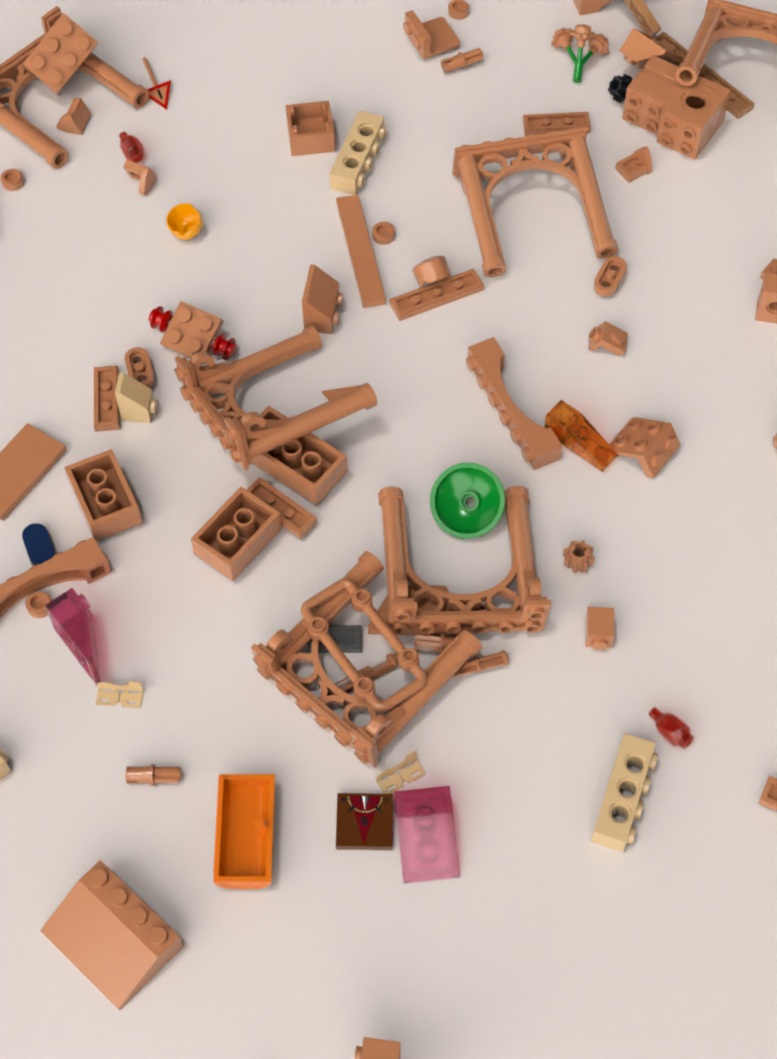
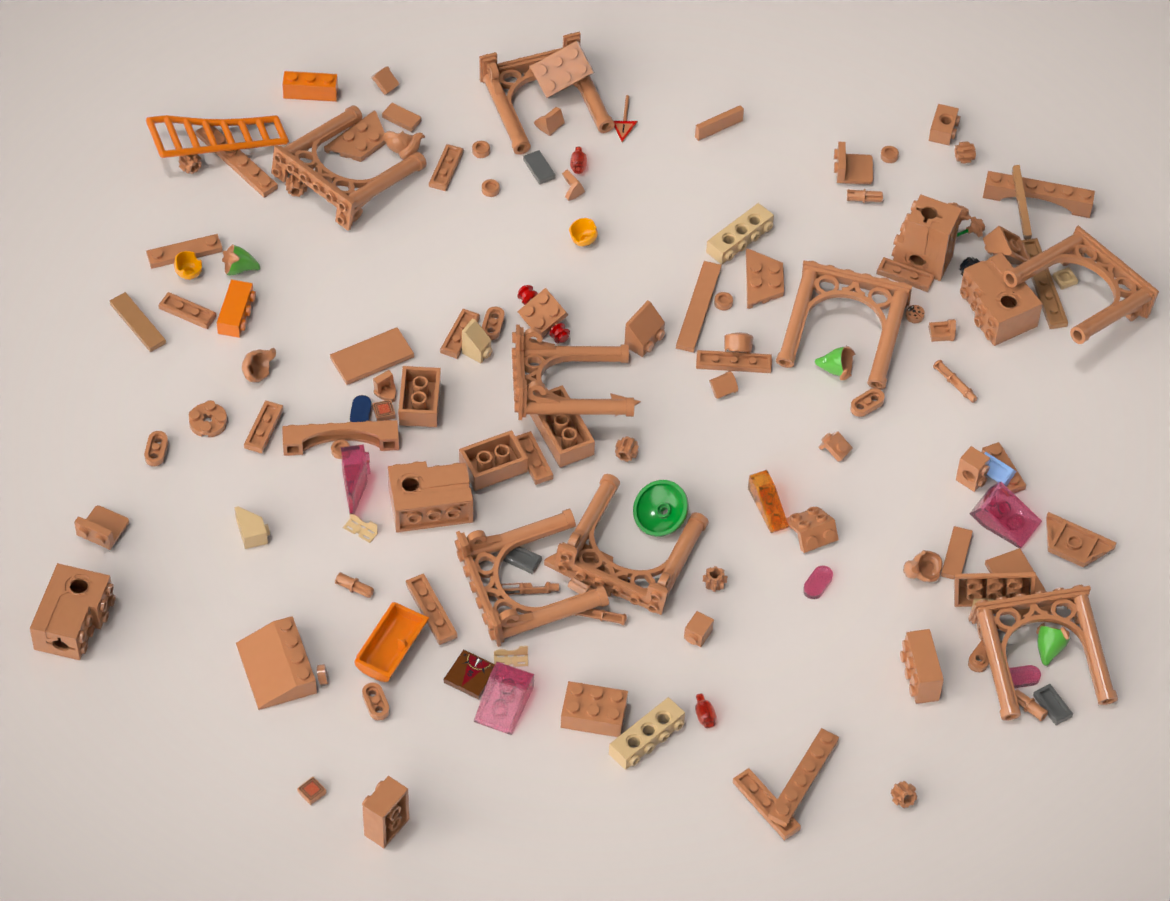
camera: 25 degrees right, 5 degrees down
(47, 217) = (490, 188): none -> nougat tile
(53, 502) = (384, 386): none -> nougat tile
(66, 531) = (383, 410): none -> nougat tile
(90, 172) = (539, 167): none -> dark grey tile
(178, 919) = (322, 674): none -> nougat tile
(185, 614) = (429, 495): none -> nougat piece
(261, 46) = (719, 122): none -> nougat tile
(267, 759) = (432, 608): none -> nougat plate
(268, 921) = (376, 702): none -> nougat plate
(310, 128) = (716, 200): nougat container -> none
(363, 686) = (515, 590): nougat bar -> none
(383, 447) = (626, 449): none -> nougat gear
(410, 190) = (763, 278): none -> nougat wing
(445, 324) = (724, 385): none -> nougat tile
(537, 444) = (736, 492): nougat arch -> none
(543, 793) = (594, 709): none -> nougat brick
(551, 246) = (837, 362): none -> hat
(567, 68) = (928, 236): none -> nougat piece
(598, 159) = (915, 314): none -> nougat tile
(683, 213) = (955, 381): none -> nougat piece
(691, 505) = (818, 582): none -> clear pink tile
(718, 60) = (1065, 278): none -> tan tile

